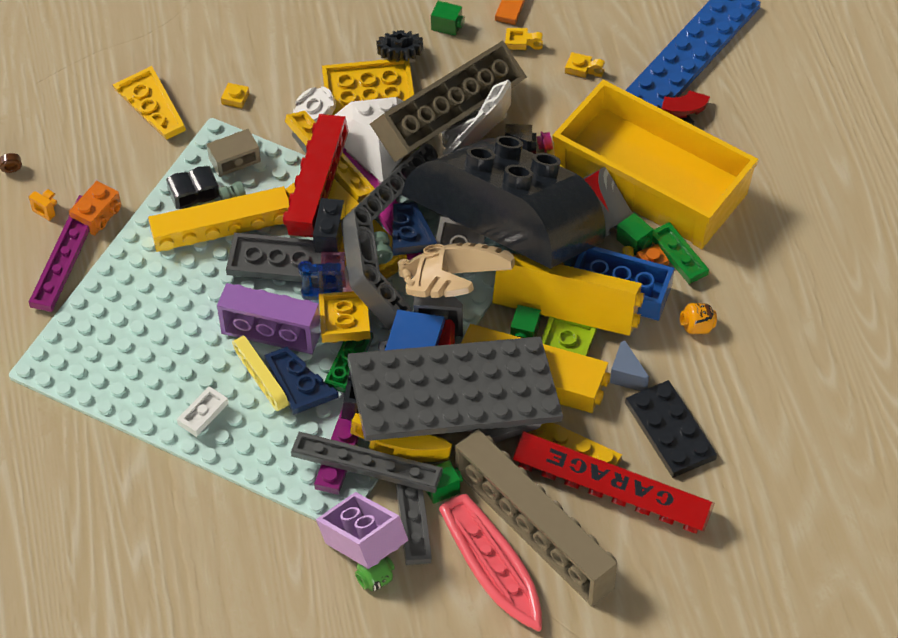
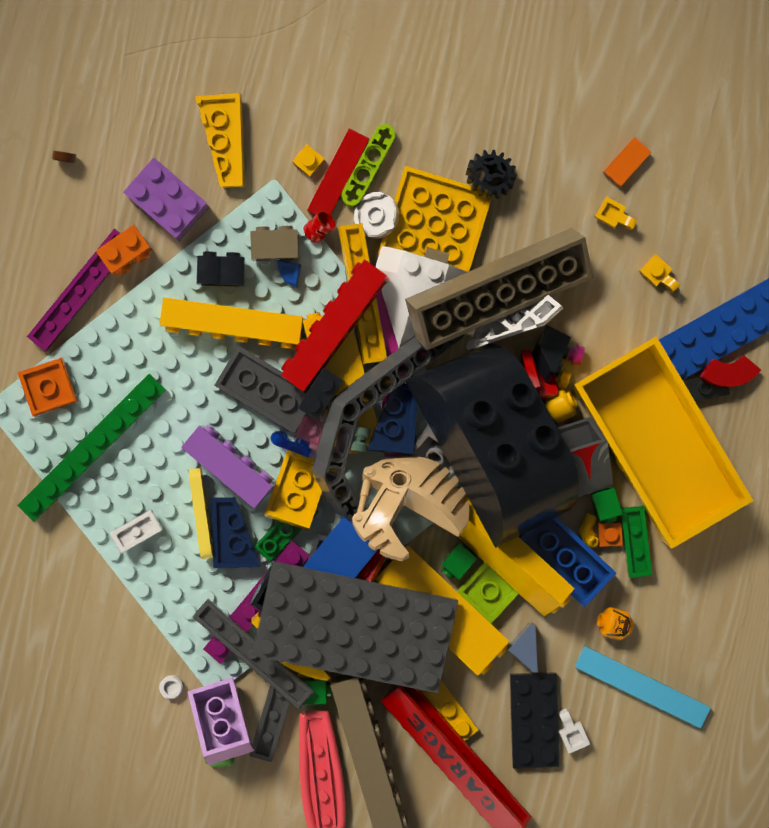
camera: 25 degrees right, 35 degrees up
(43, 204) = (79, 223): light orange tile -> none
(65, 333) = (47, 387): none -> orange tile
(119, 159) = (166, 199): none -> medium lavender brick
(127, 366) = (91, 447): none -> green plate
(237, 189) = (248, 297): sand green wheel -> none
(256, 171) = (289, 272): none -> blue tile
(265, 134) = (319, 226): none -> red wheel
(266, 96) = (338, 172): none -> red tile
(289, 80) = (365, 164): none -> lime beam
(297, 538) = (171, 687): none -> white tile
(447, 18) = (554, 155): green brick -> none
(712, 422) = (573, 734): none -> white plate
(755, 362) = (642, 687): none -> medium azure tile

